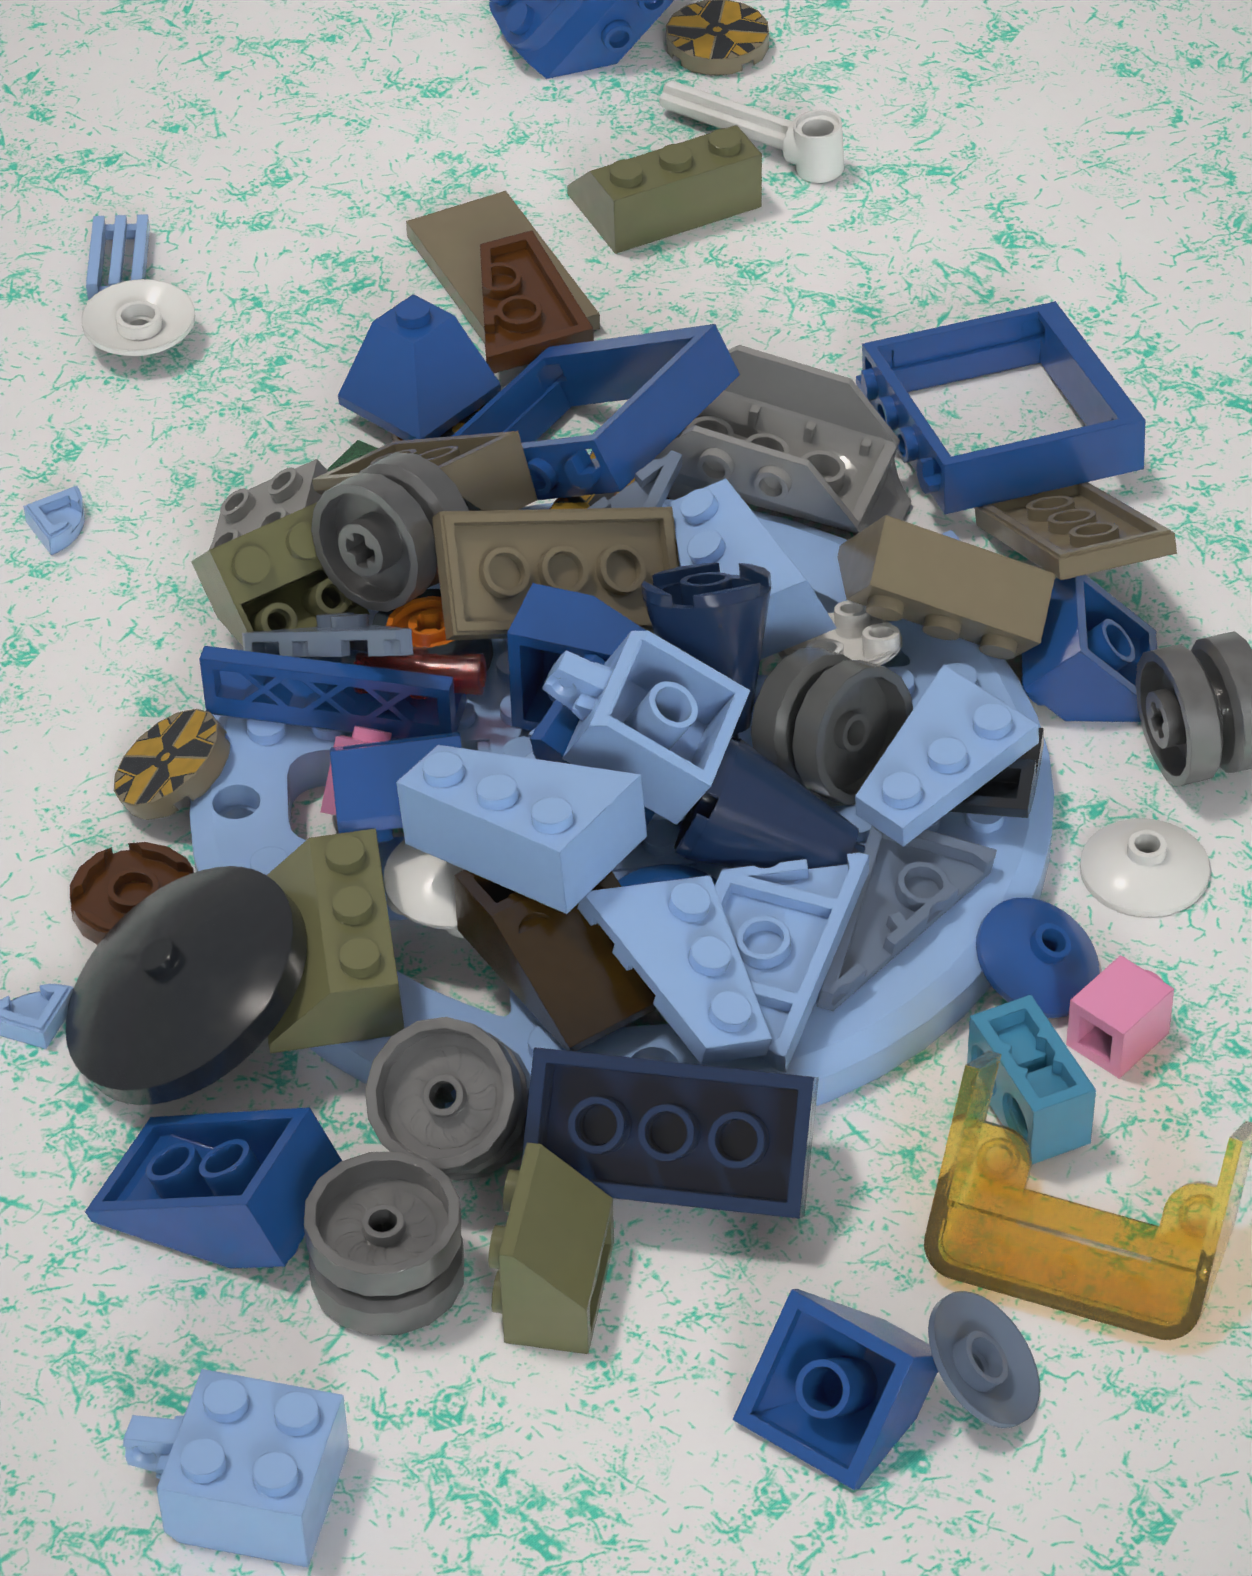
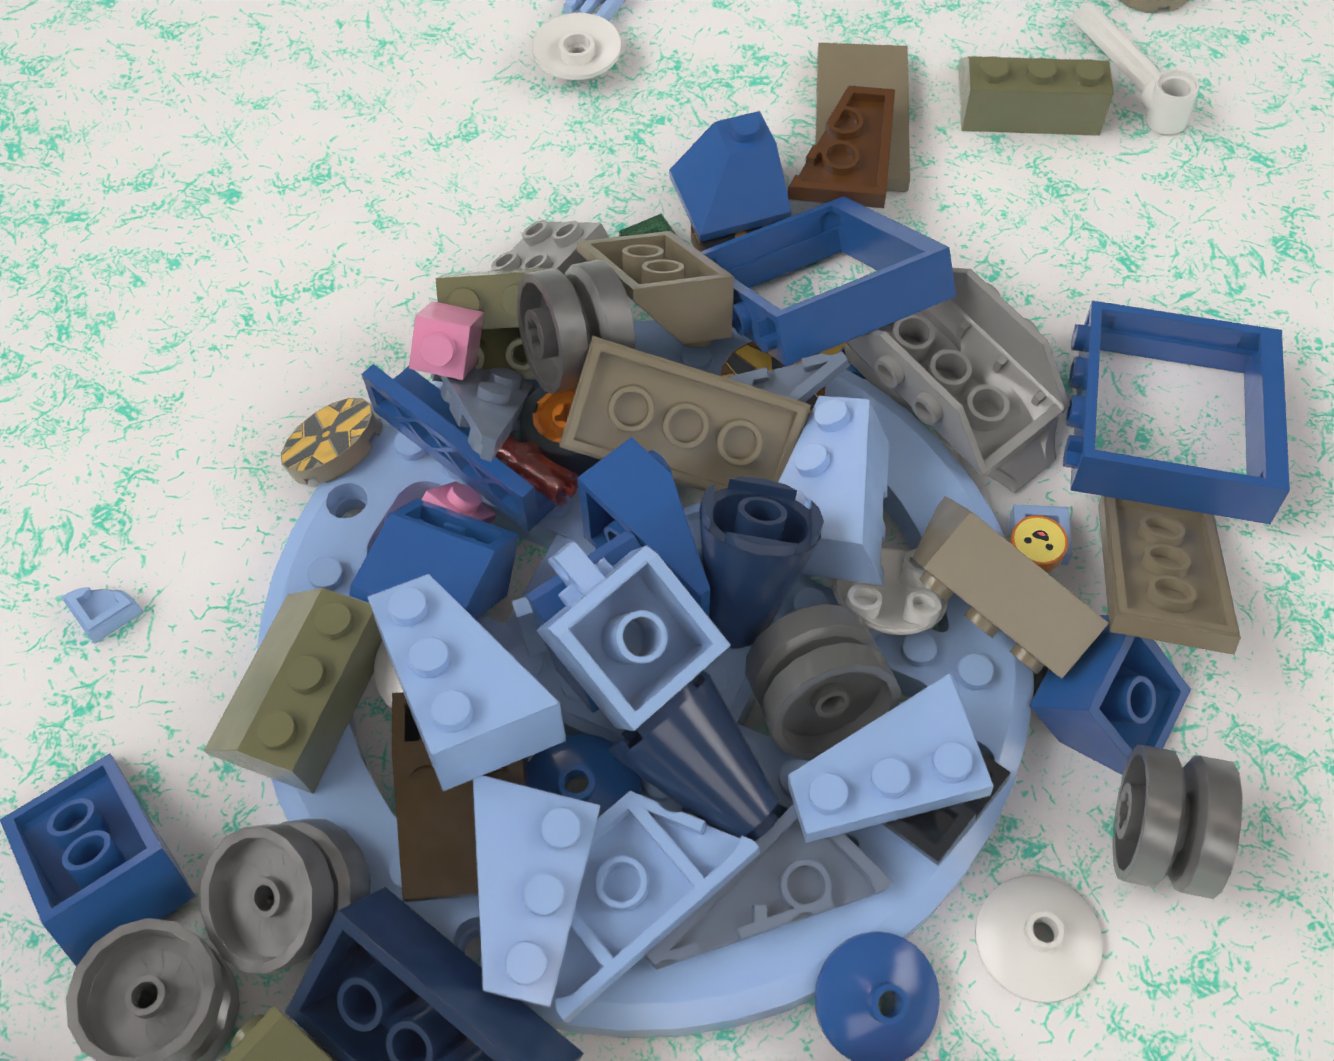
camera: 30 degrees right, 15 degrees up
(57, 519) = (419, 186): light blue tile -> none
(116, 882) = (238, 540): reddish brown tile -> none
(186, 985) = (182, 663): black dish -> none
(262, 599) = (446, 340): none -> bright pink brick

